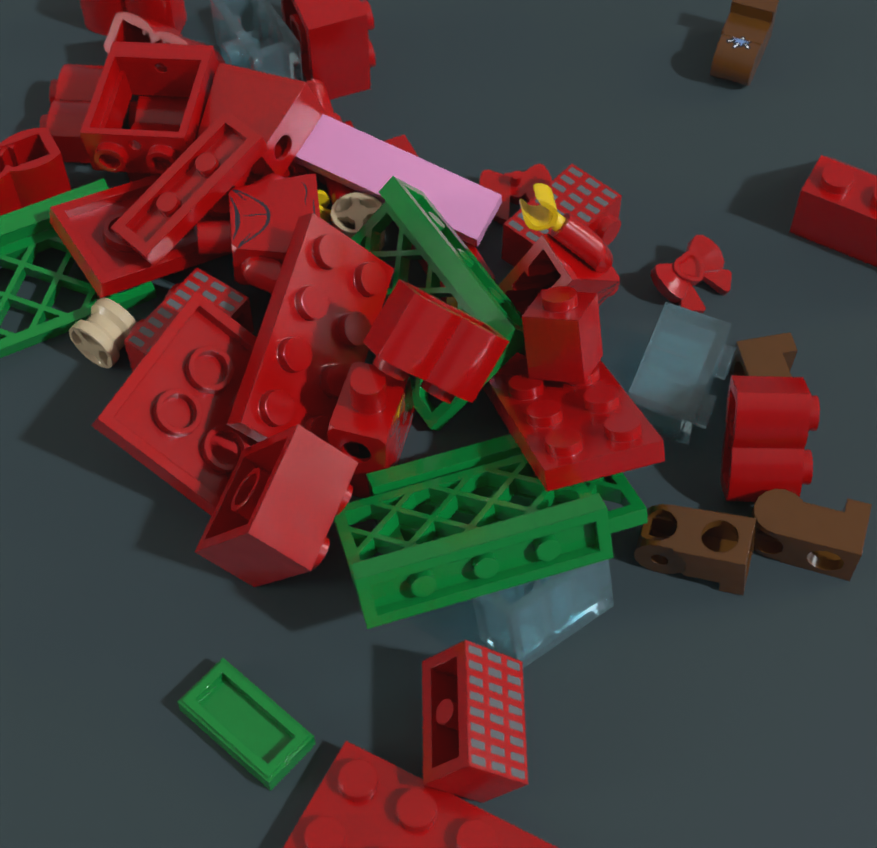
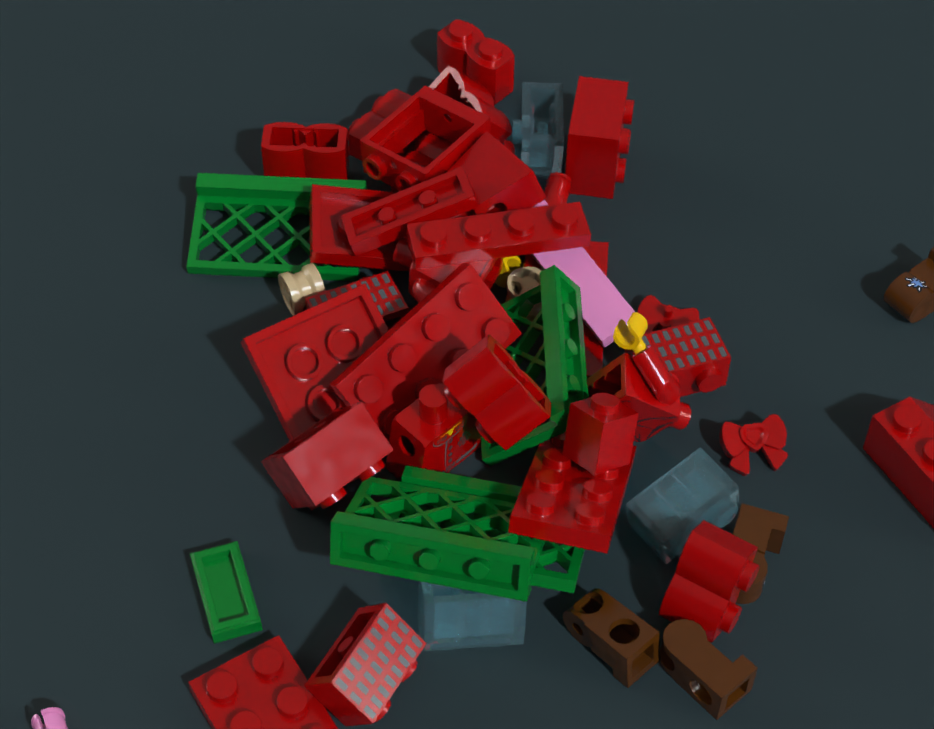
camera: 30 degrees right, 5 degrees down
(305, 172) = (498, 235): none -> red plate

